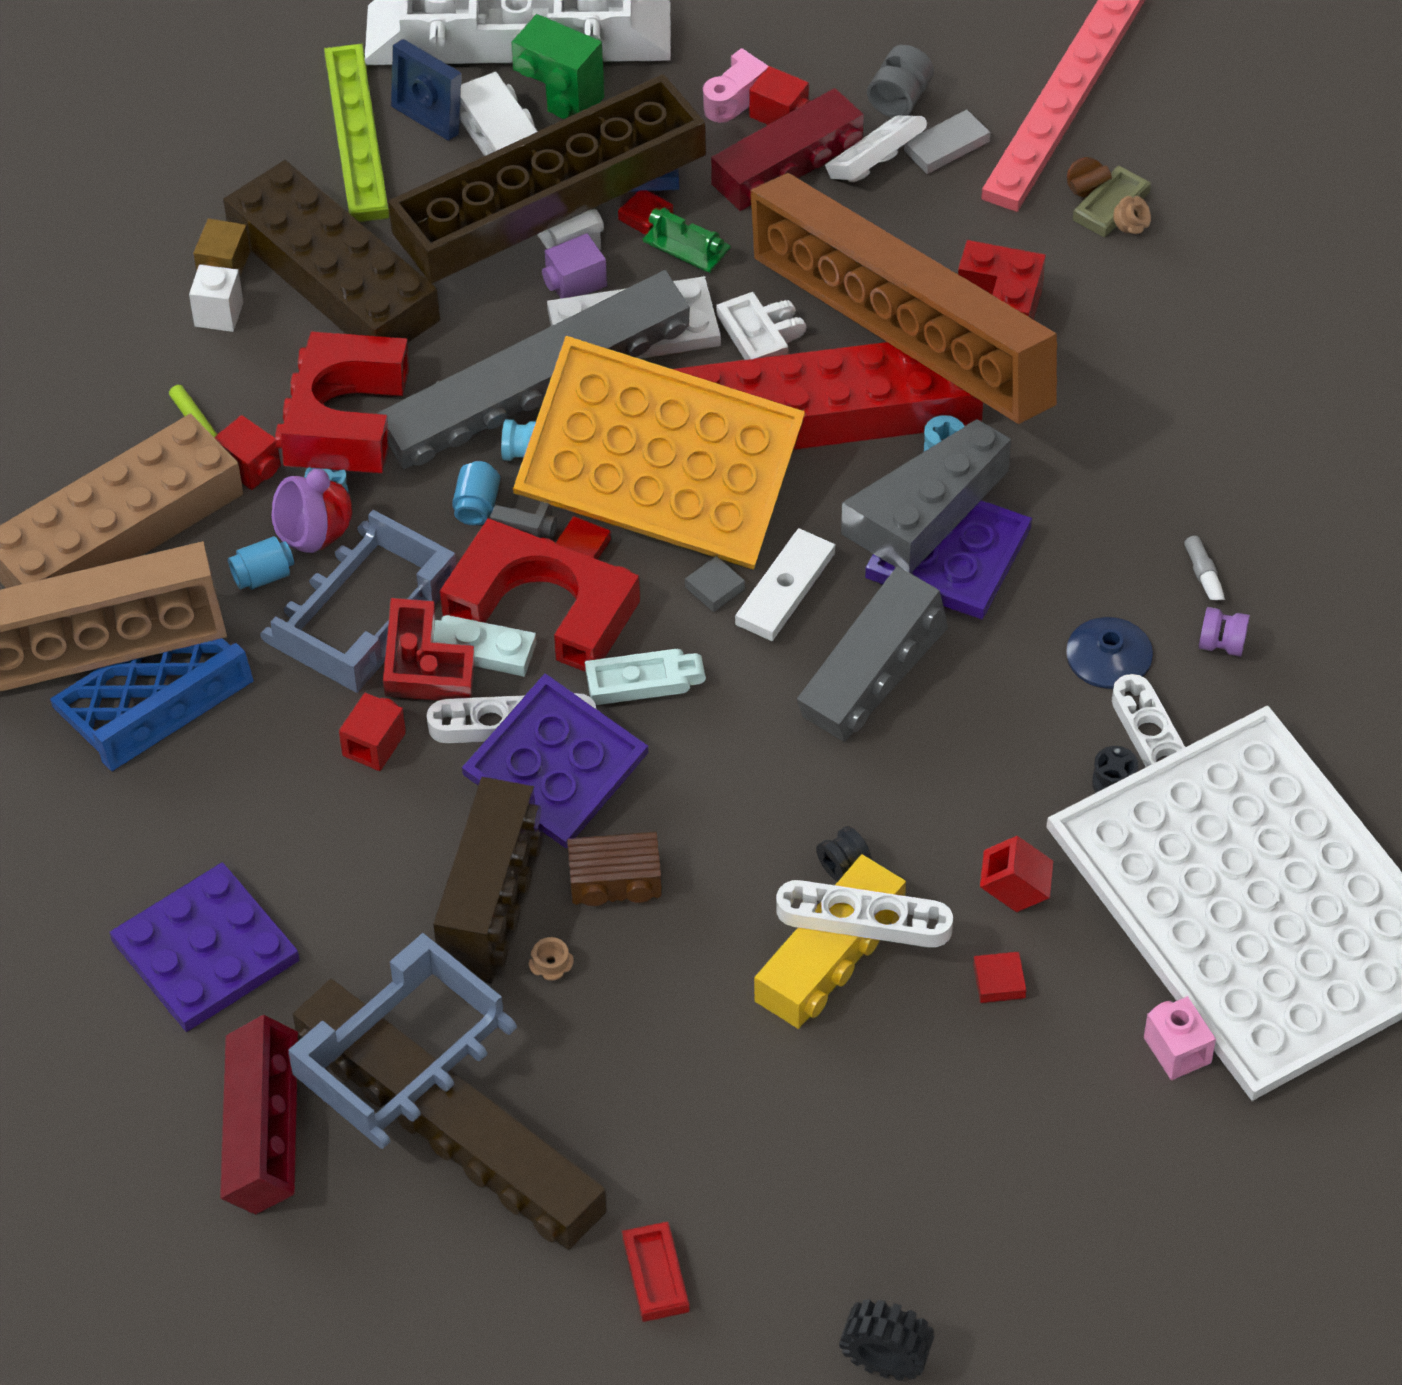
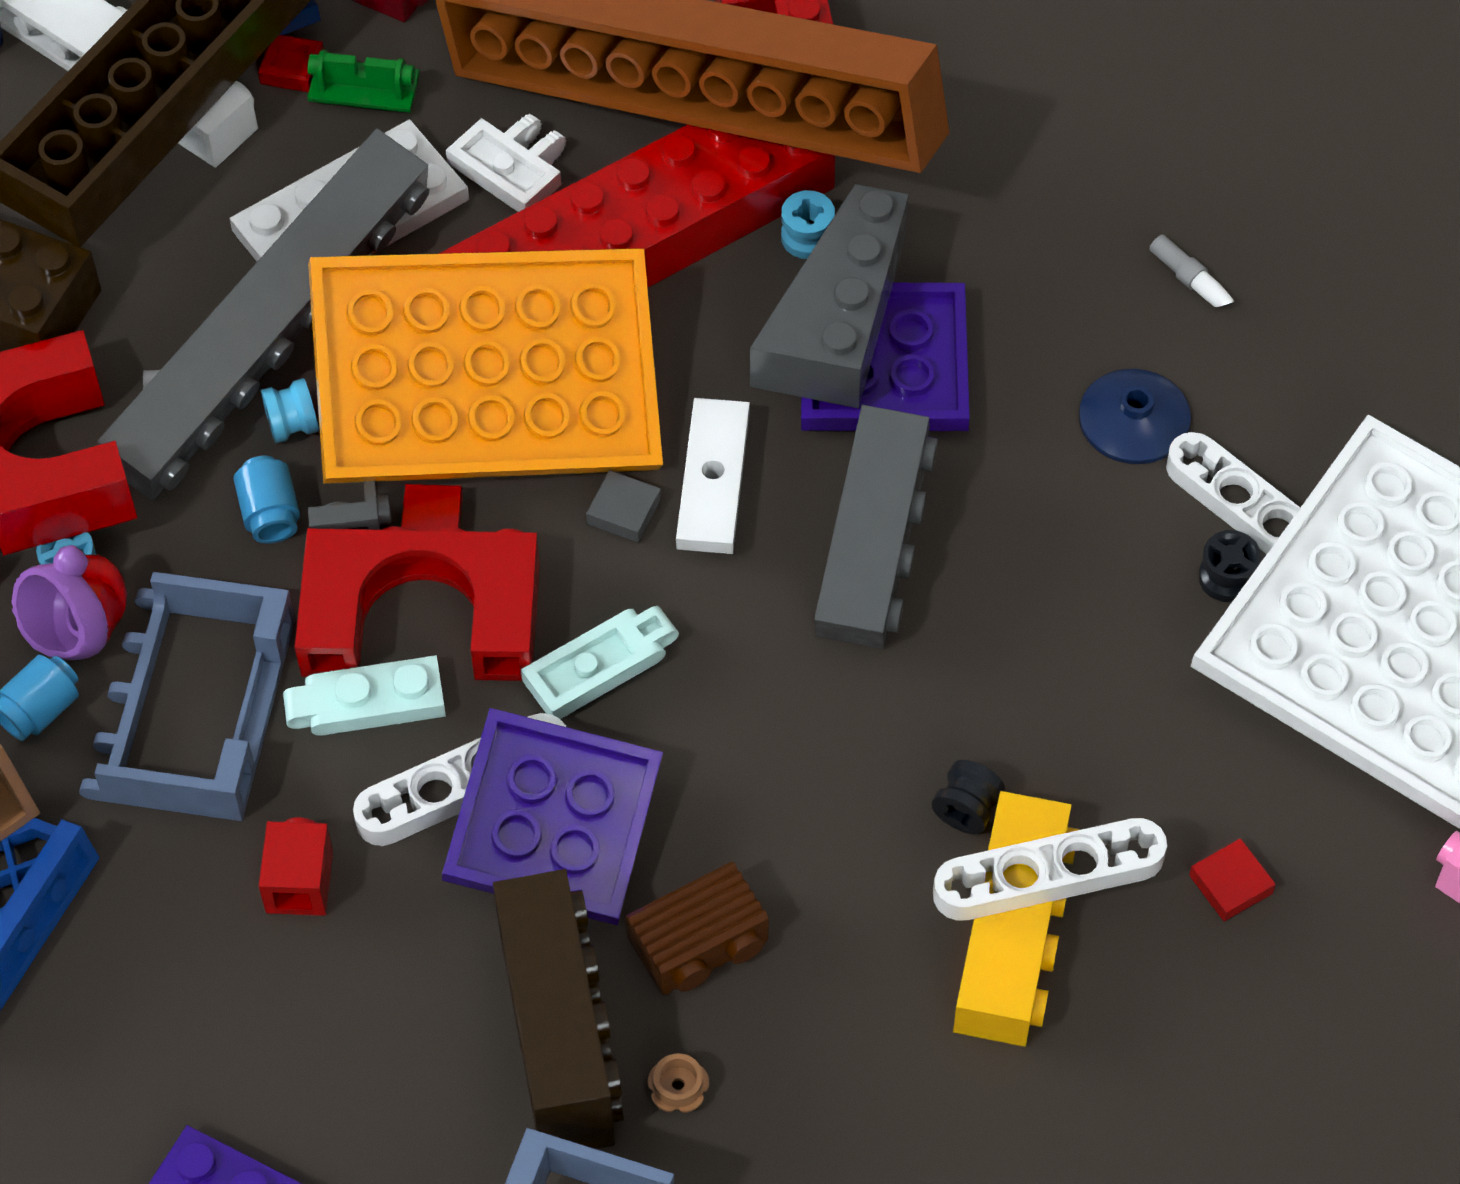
camera: 25 degrees left, 5 degrees up
(416, 664) = (316, 758): red brick -> none
(575, 267) = (244, 163): medium lavender brick -> none
(1016, 874) = (1192, 741): red brick -> none
(1234, 631) = (1259, 341): medium lavender wheel -> none

